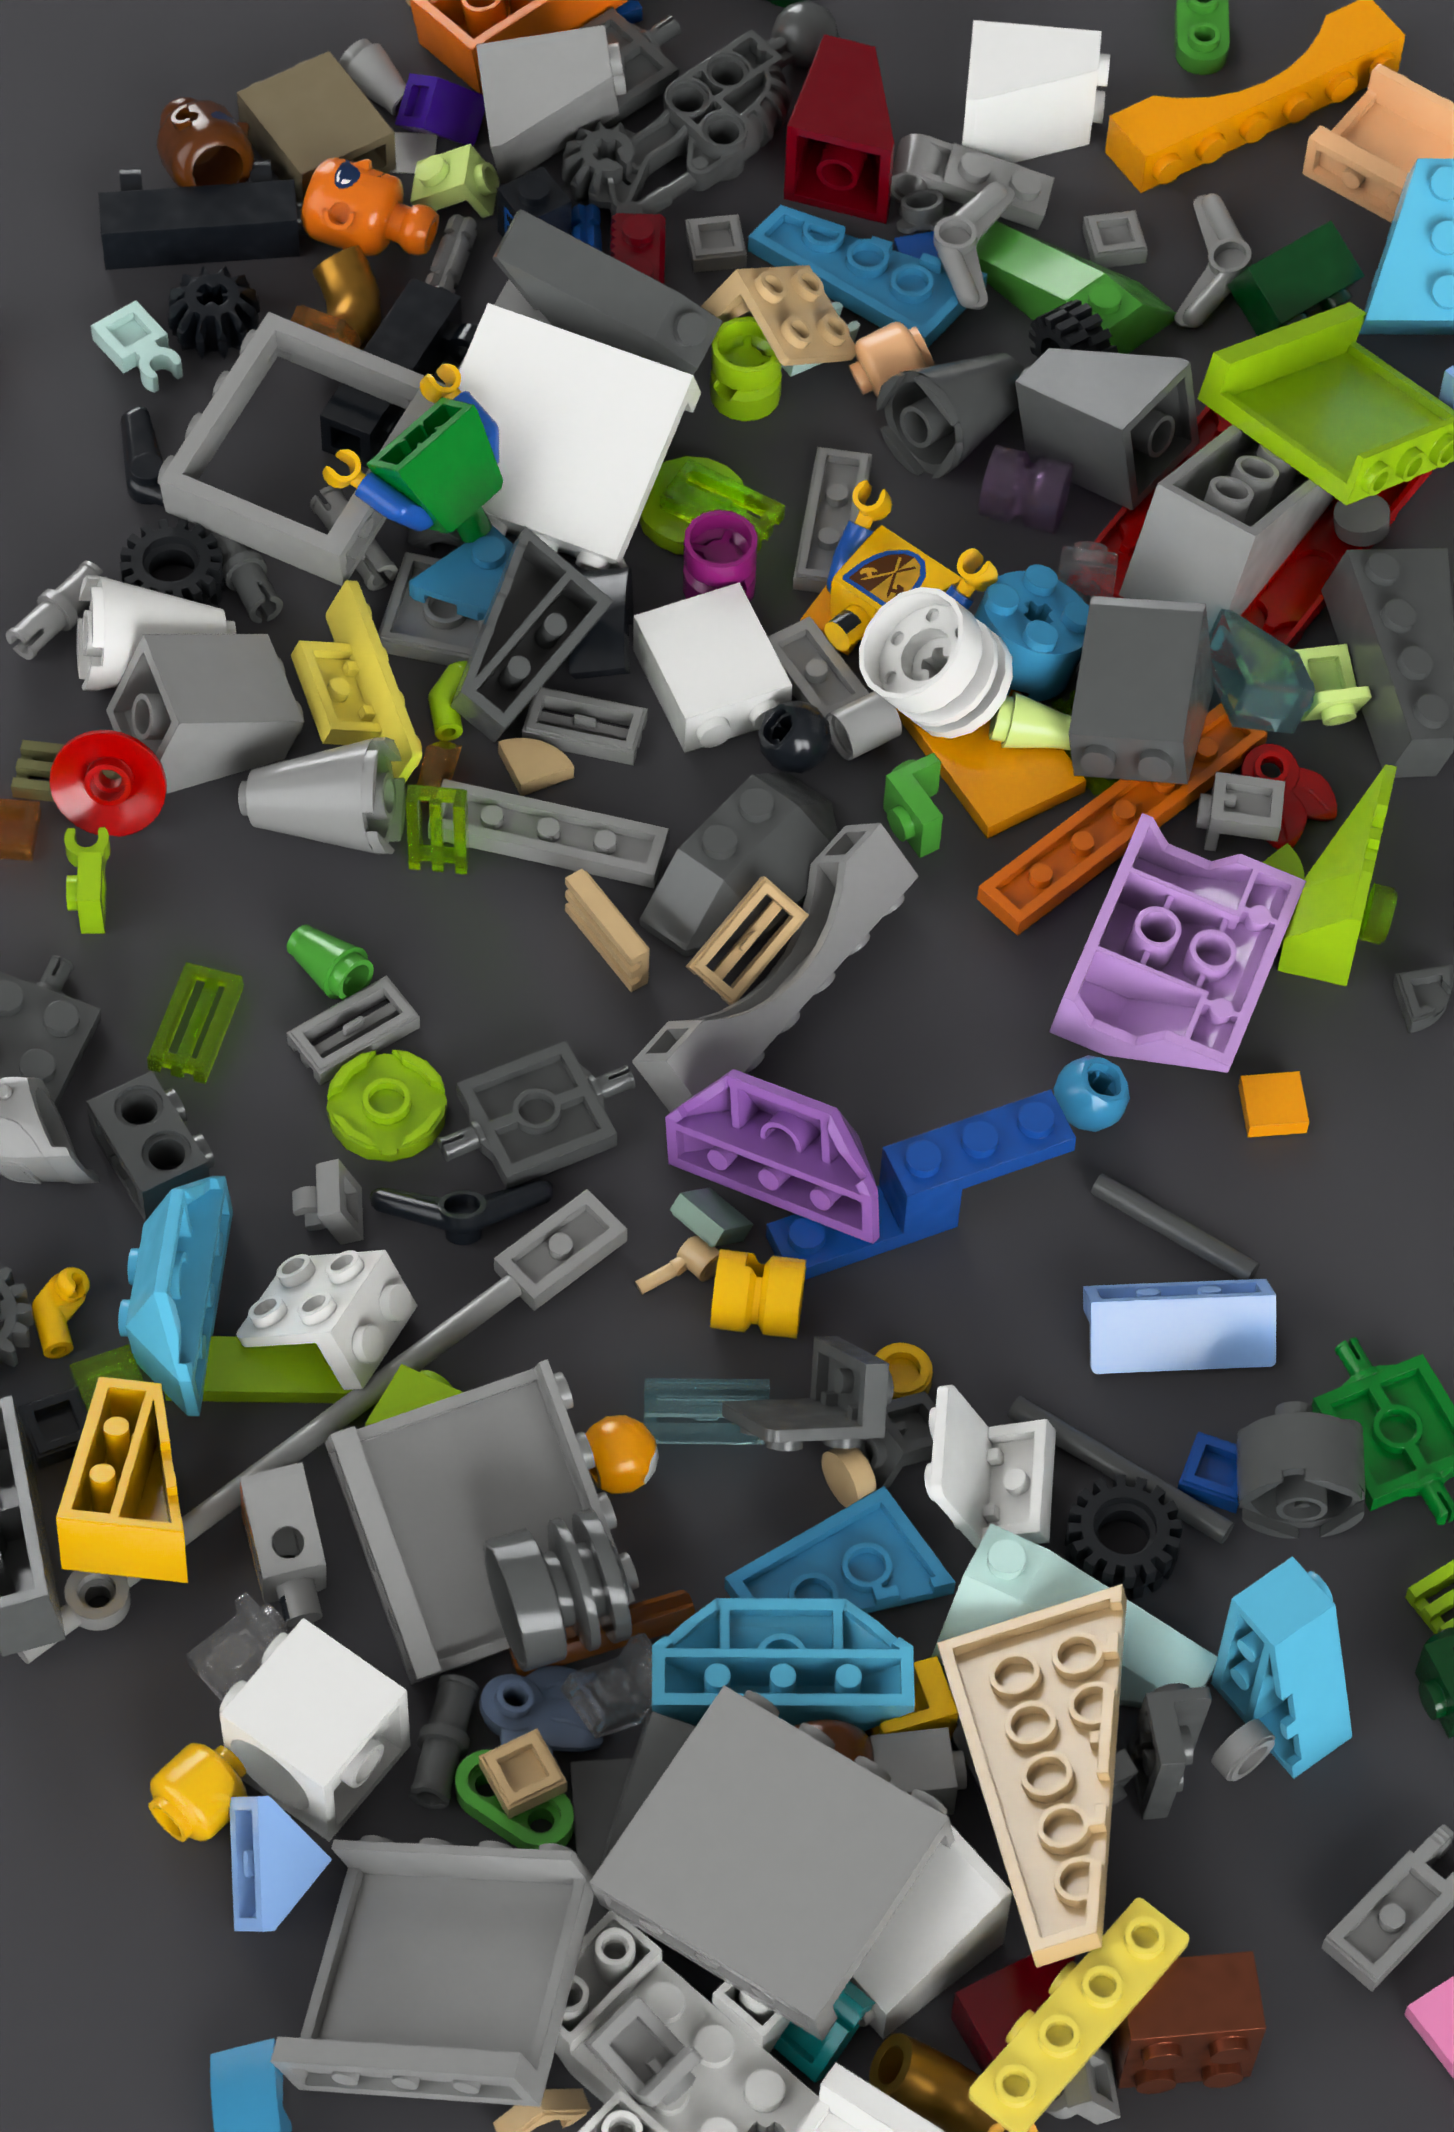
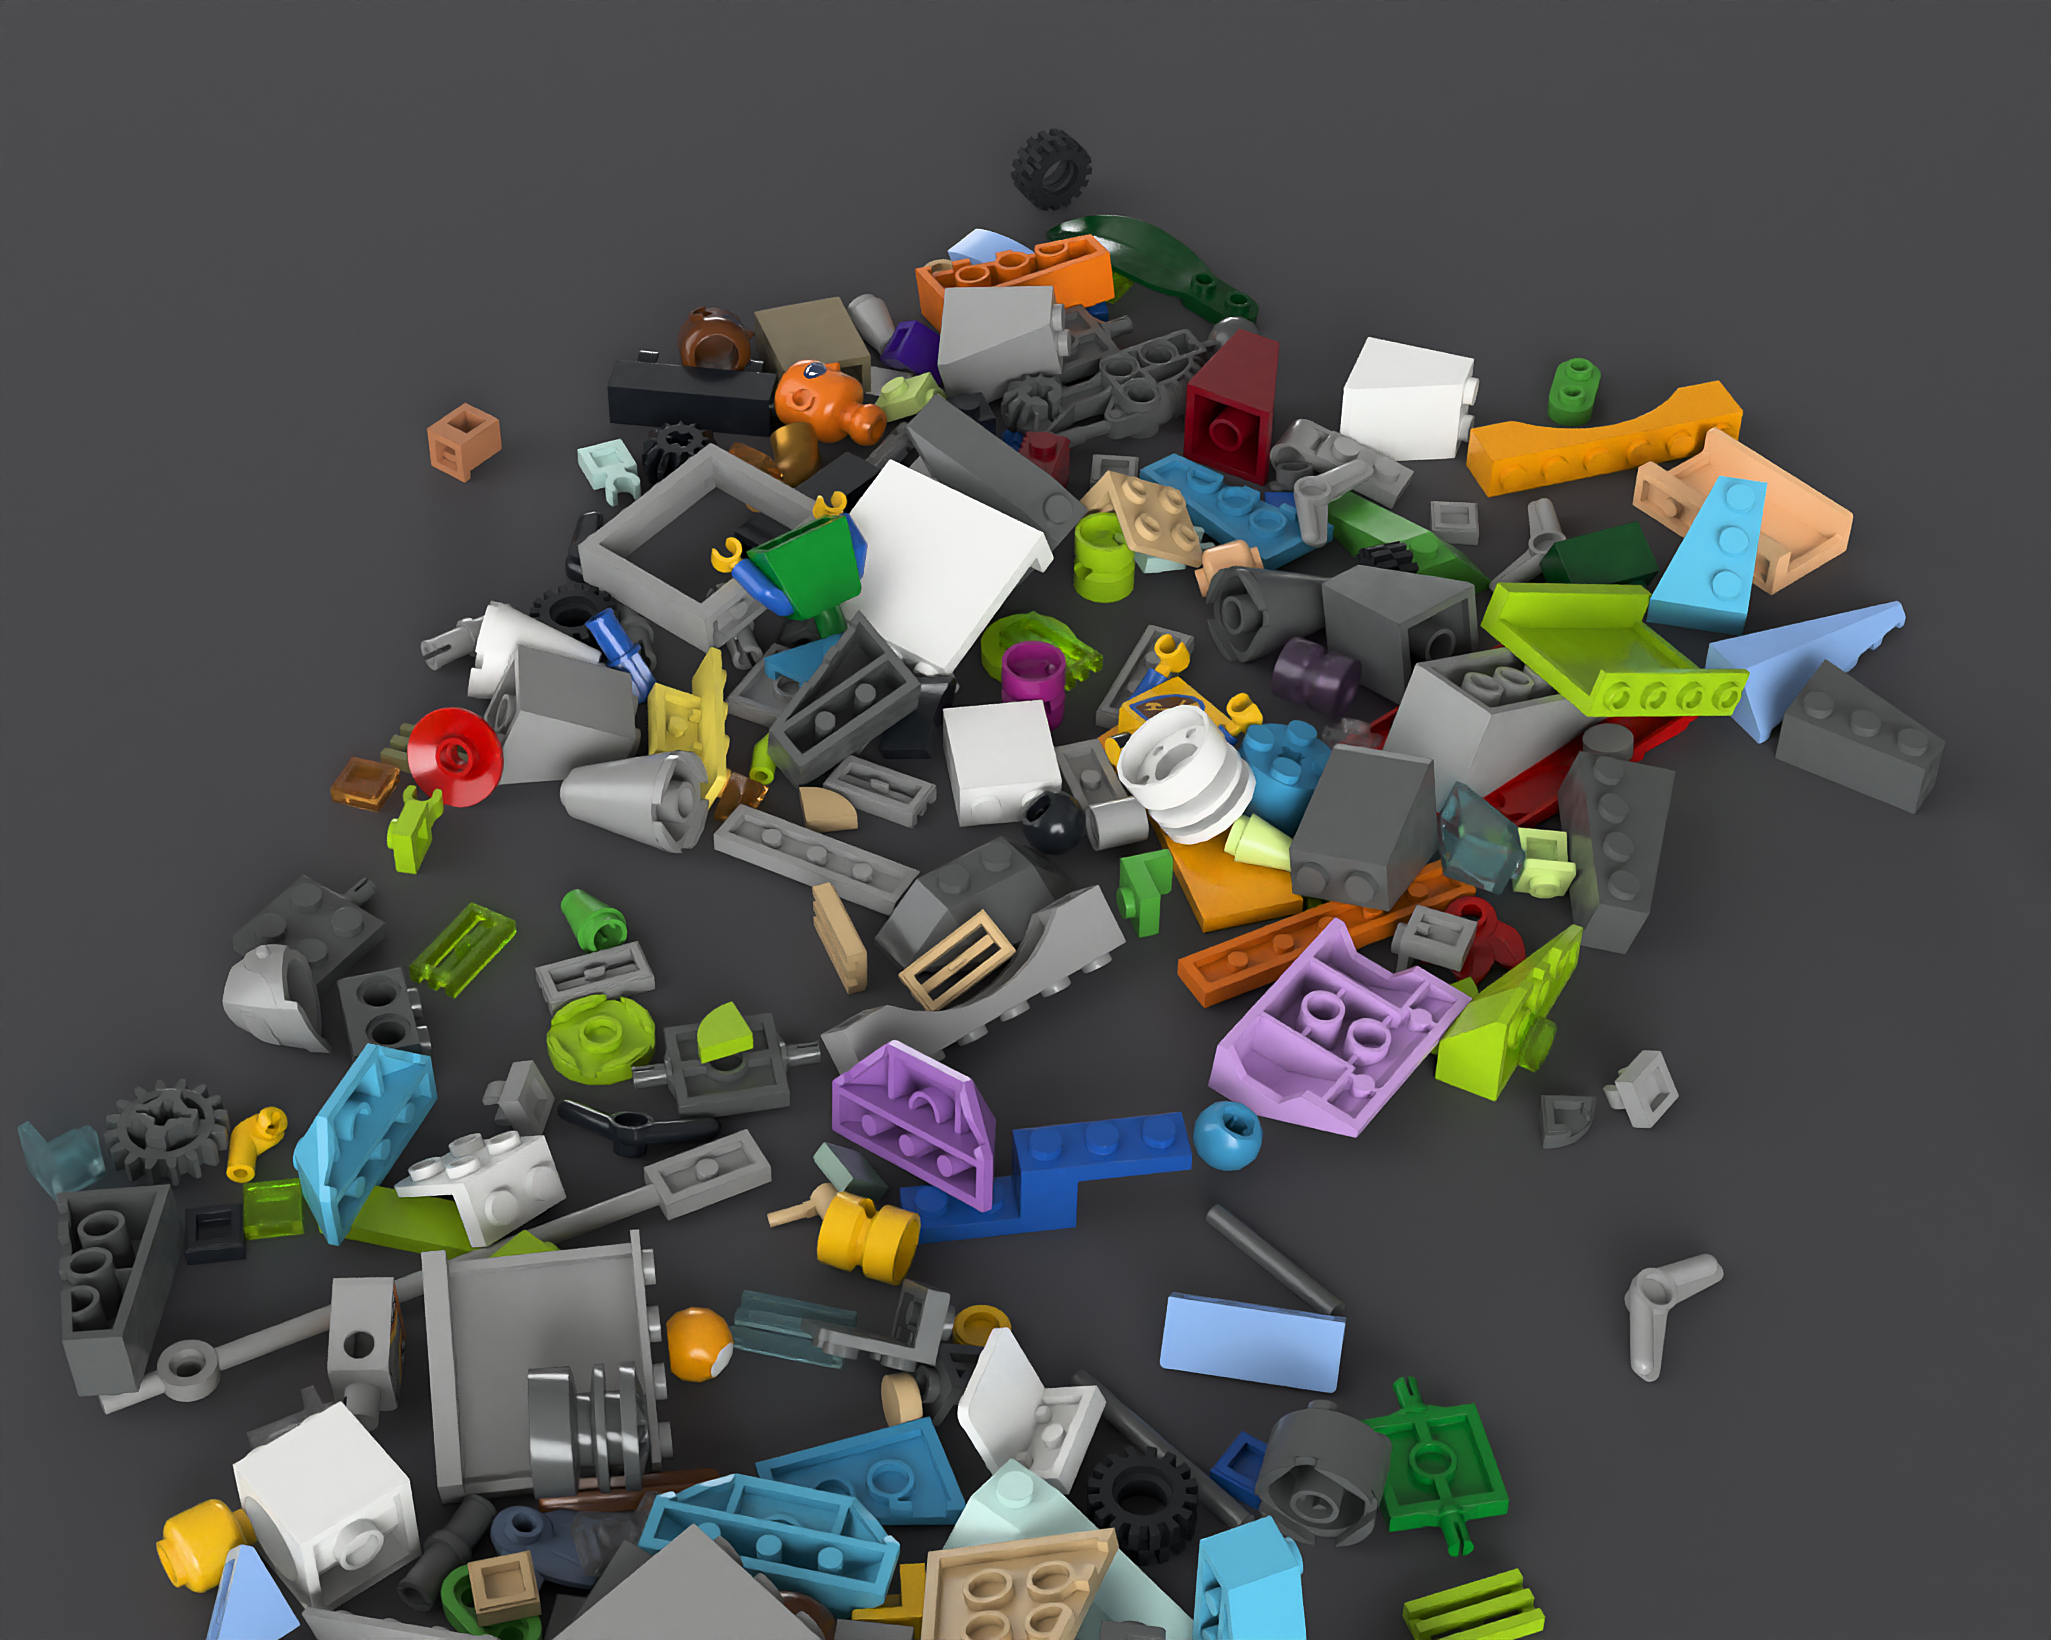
camera: 15 degrees right, 15 degrees down
(122, 1489) = (236, 1278): yellow wedge -> none
(247, 607) = (621, 652): none -> blue axle
(437, 852) = (698, 837): clear neon green tile -> none
(529, 1081) = (723, 1034): none -> lime tile
(1273, 1104) = (1397, 1179): light orange tile -> none

